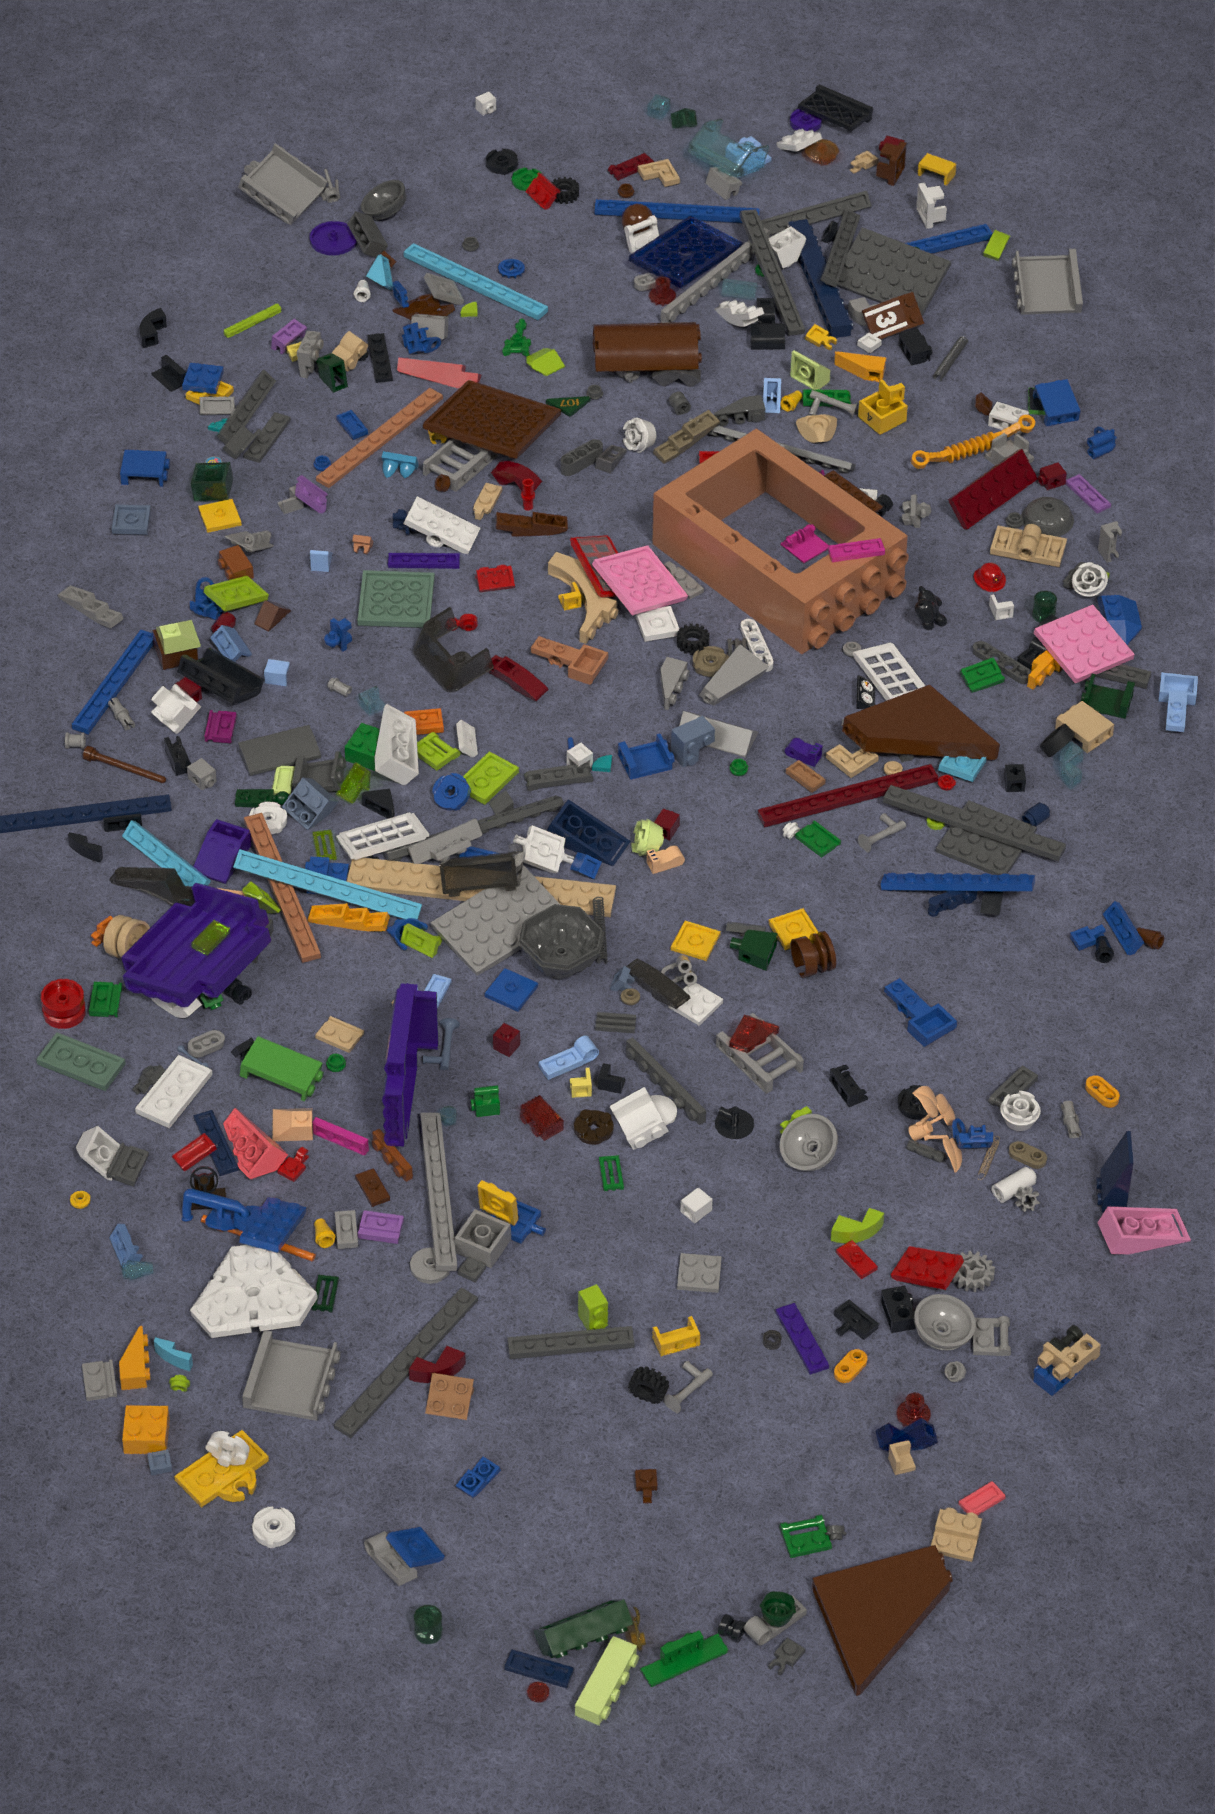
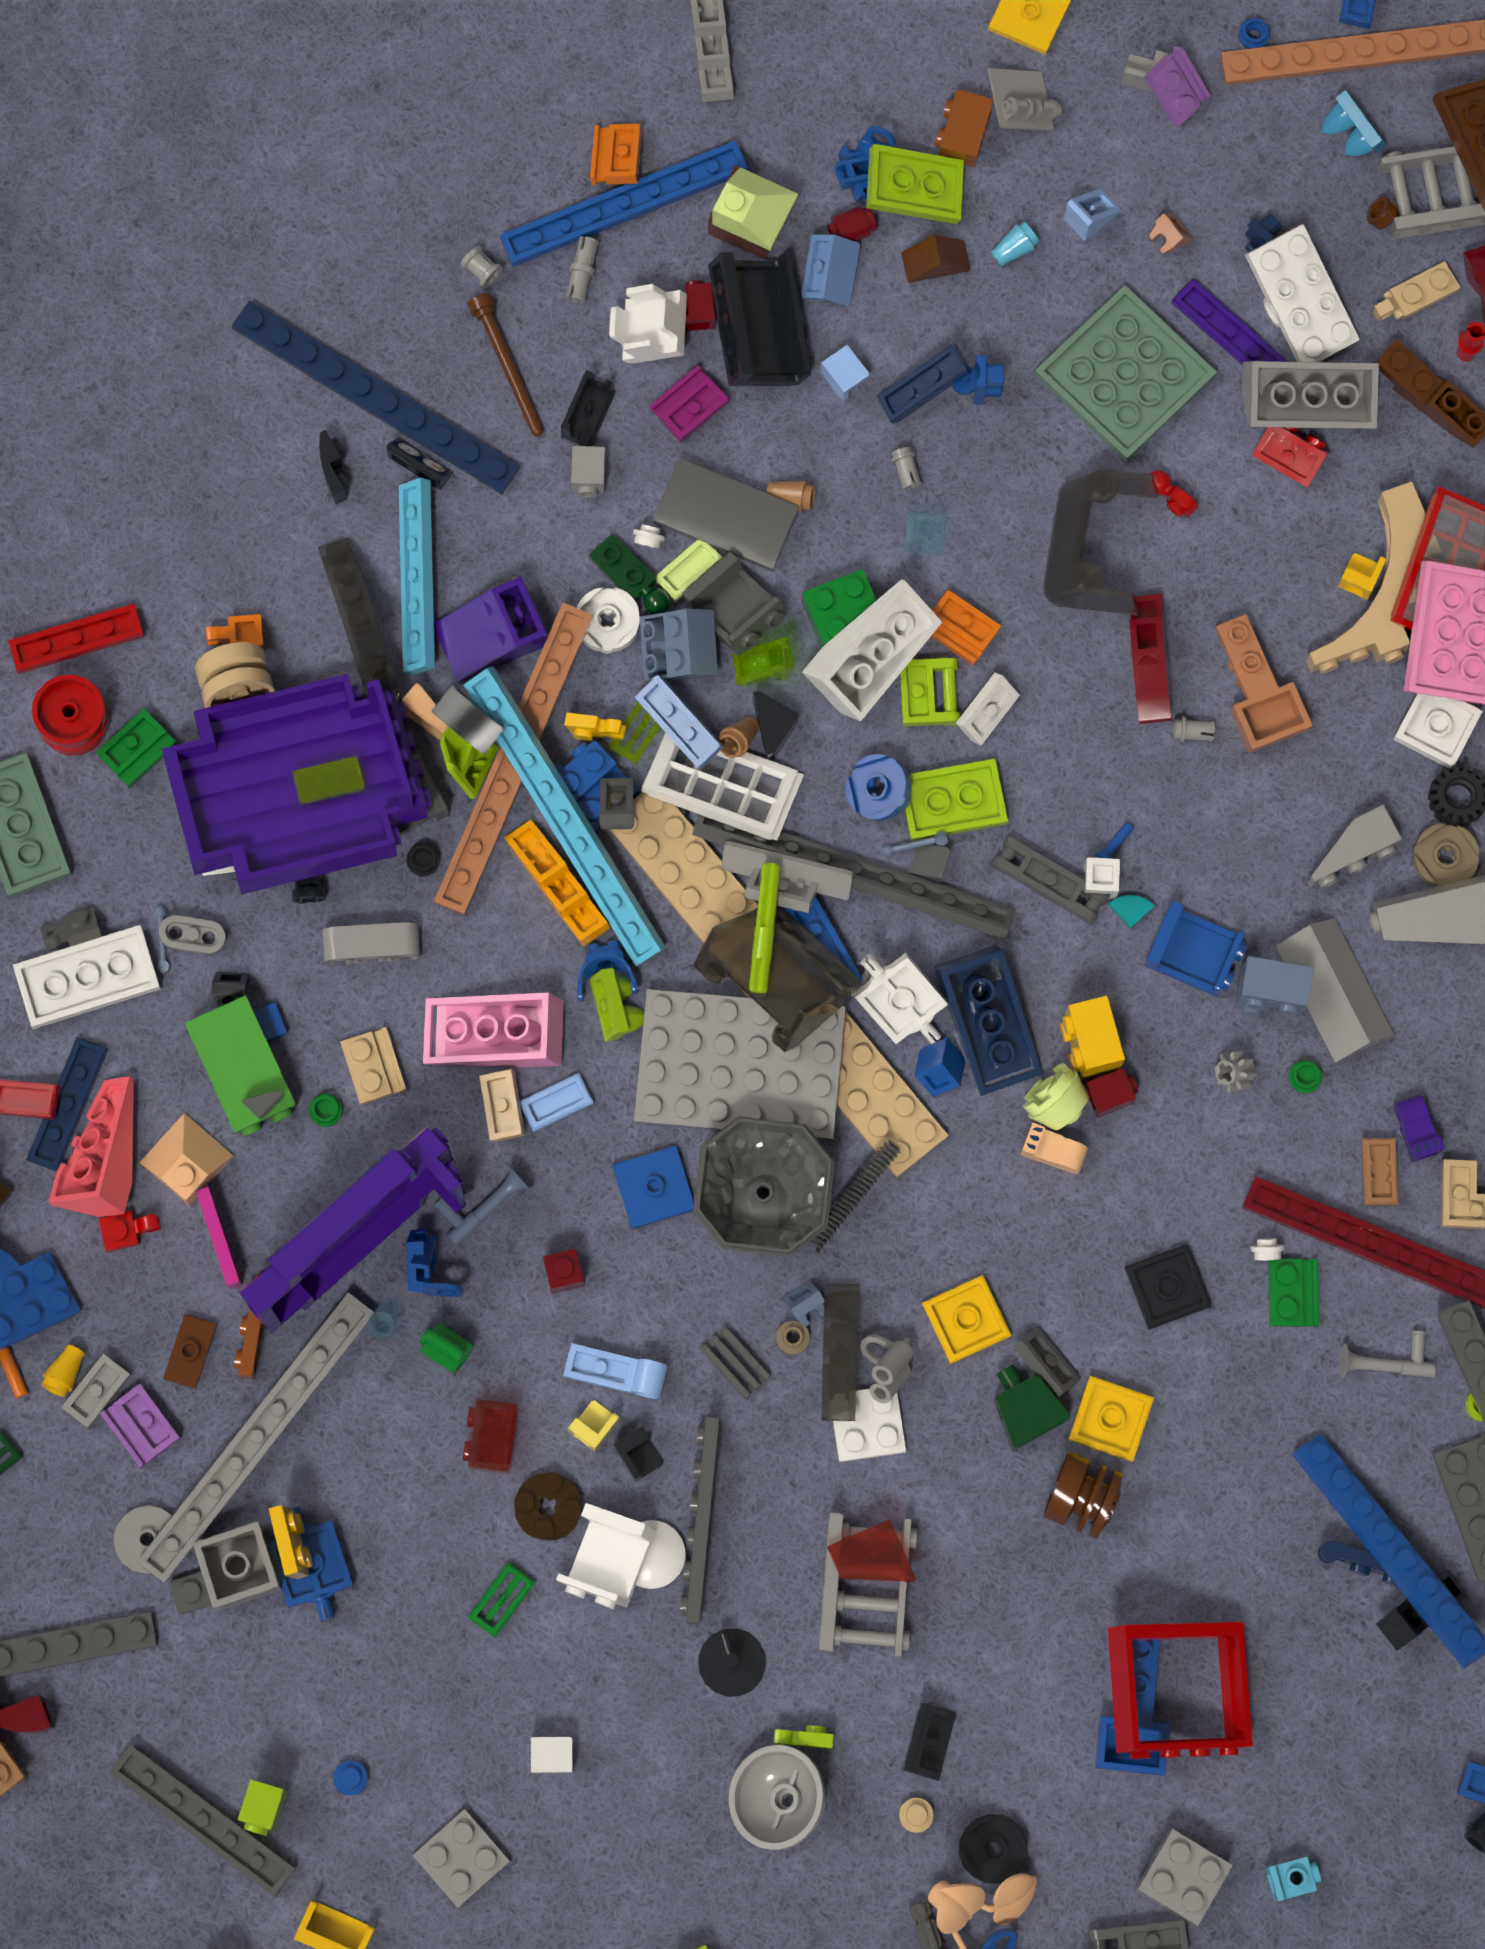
camera: 40 degrees right, 30 degrees up
(33, 981) = (76, 638): none -> red plate
(93, 666) = (616, 154): none -> orange plate
(249, 874) = (467, 719): none -> slope
(254, 779) = (648, 536): none -> white plate
(280, 950) = (423, 860): none -> black plate
(290, 991) = (371, 941): none -> light grey beam
(301, 587) = (1015, 244): none -> medium azure cone
(302, 721) = (795, 492): none -> medium nougat cone
(303, 853) = (588, 726): none -> yellow plate
(307, 1067) = (263, 1104): none -> dark grey slope
(316, 650) = (924, 383): none -> dark blue tile
(341, 824) = (679, 721): none -> plate
(347, 868) = (616, 803): none -> dark grey slope
(372, 820) = (738, 737): none -> medium nougat cone
(379, 982) = (495, 1030): none -> bright pink slope
(446, 1084) = (421, 1264): none -> blue piece
(449, 847) = (764, 928): none -> lime axle
(480, 549) = (1311, 394): none -> light grey slope
(497, 790) = (940, 838): none -> sand blue hinge
(560, 690) = (1193, 730): none -> light grey pin
(618, 1280) = (350, 1778): none -> blue plate
(637, 804) = (1092, 1038): none -> yellow brick
(714, 782) = (1235, 1071): none -> light grey gear
(765, 872) = (1167, 1287): none -> black tile
(872, 1115) = (916, 1815): none -> tan plate
(893, 975) = (1233, 1687): none -> red window
(1004, 1051) = (1183, 1877): none -> light grey brick
(1049, 1018) = (1280, 1881): none -> medium azure brick

